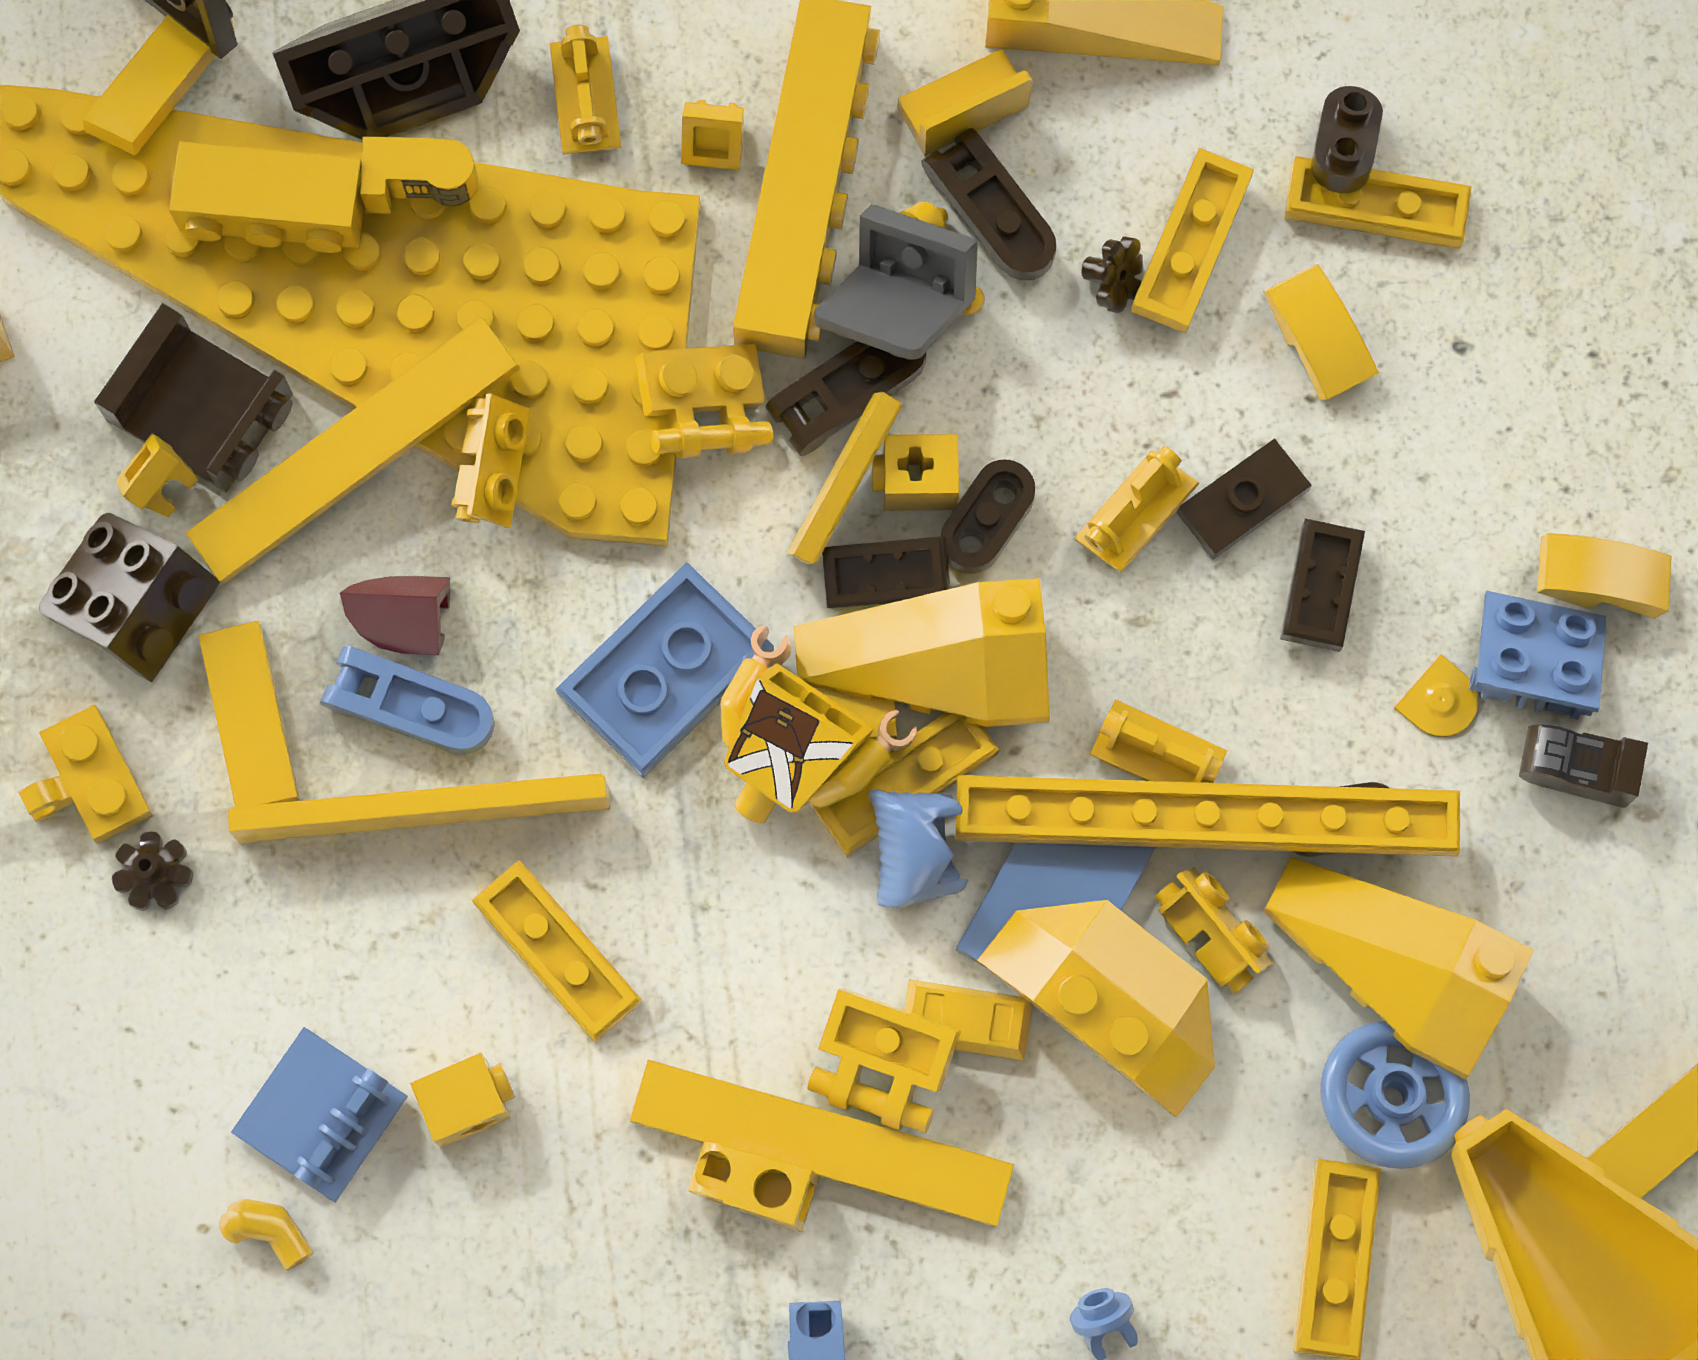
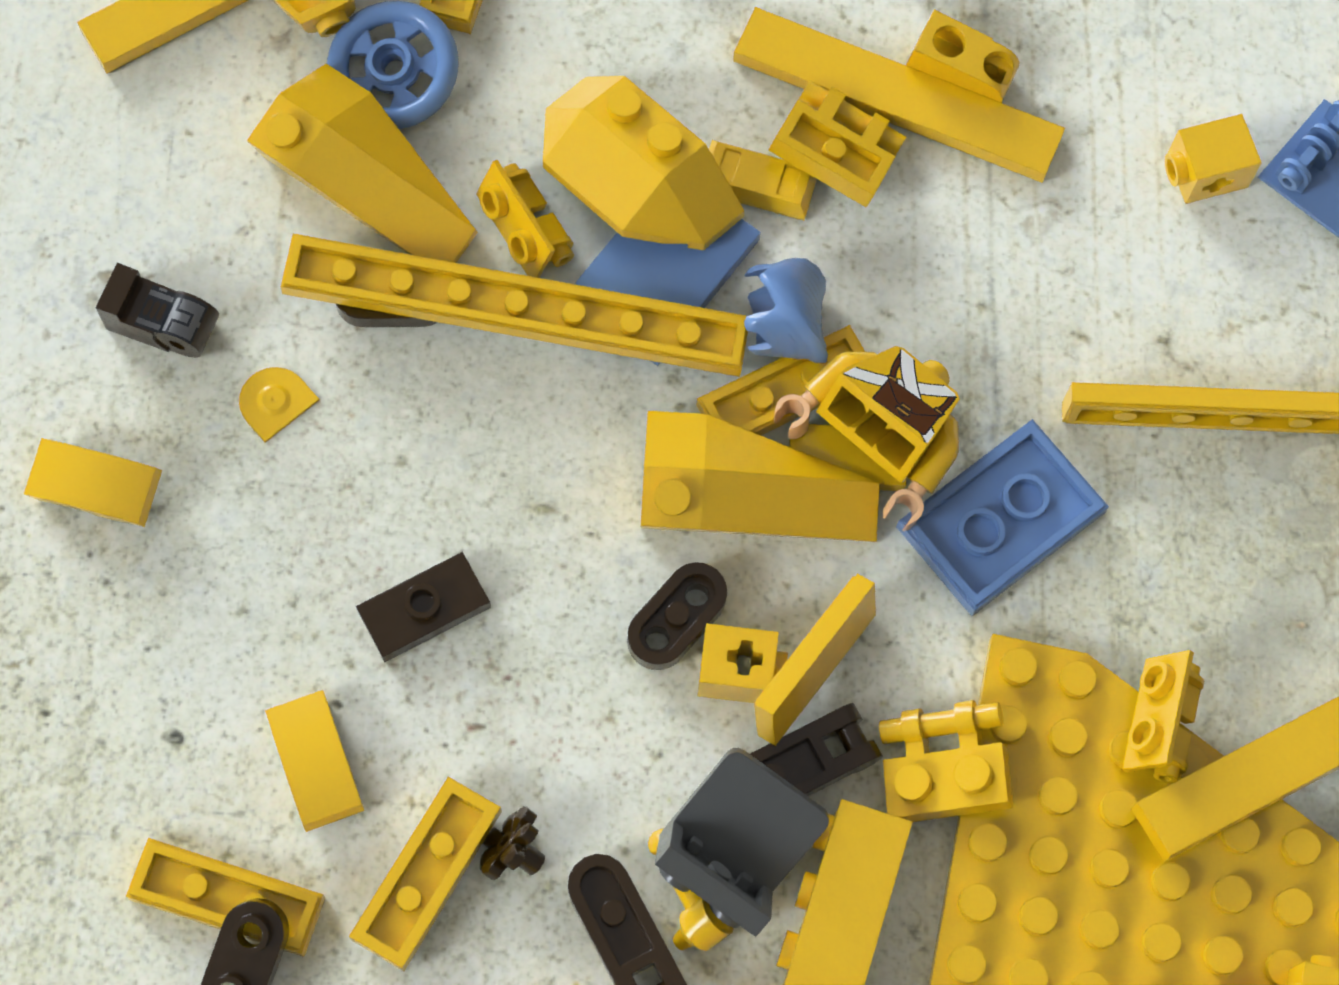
camera: 175 degrees left, 5 degrees down
(399, 612) = (1255, 599): dark red brick -> none
(410, 703) = (1248, 511): medium blue plate -> none
(557, 951) = (1120, 281): yellow tile -> none
(885, 571) = (782, 571): dark brown plate -> none
(1137, 509) = (531, 604): yellow hinge -> none
(1155, 748) = (547, 380): yellow hinge -> none
(1322, 585) = (364, 510): dark brown plate -> none
(1540, 655) = (173, 417): medium blue hinge -> none

